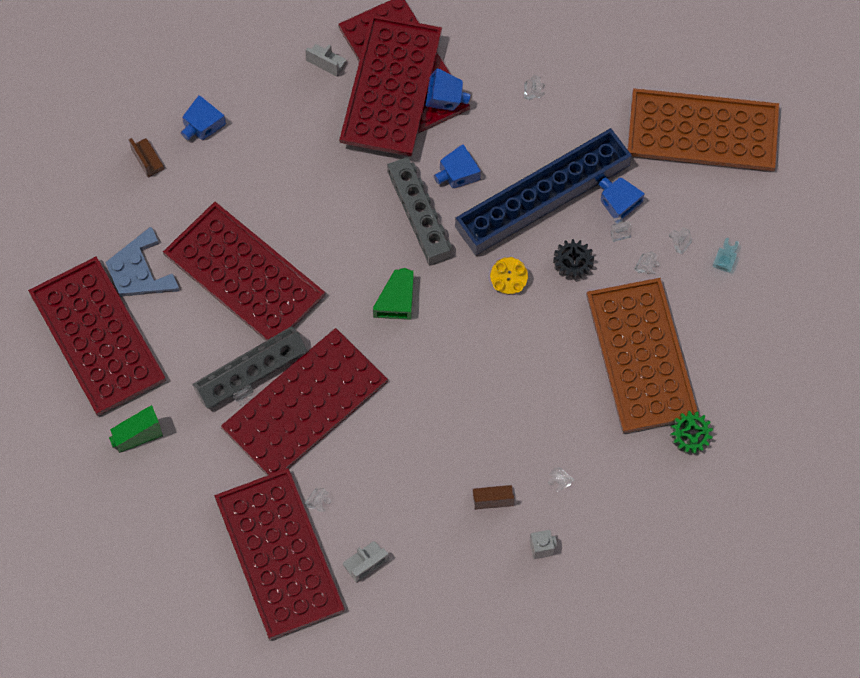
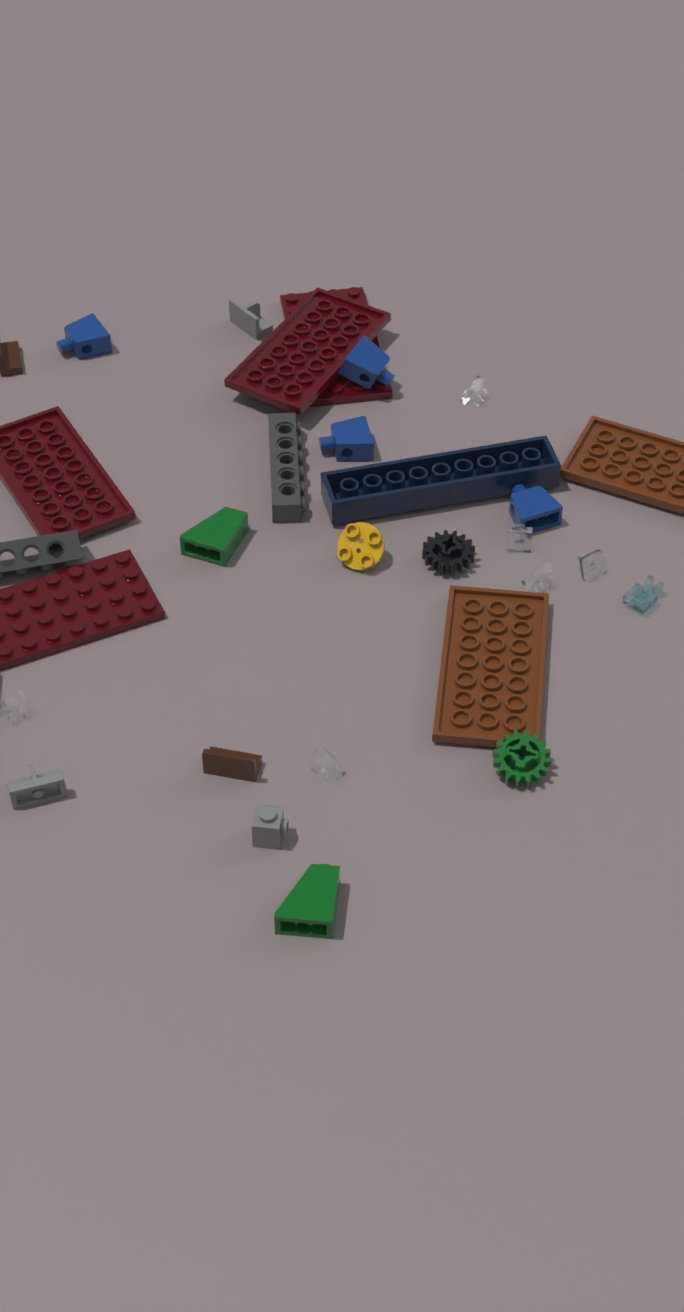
camera: 20 degrees right, 20 degrees down
(596, 594) = (311, 904): none -> green slope

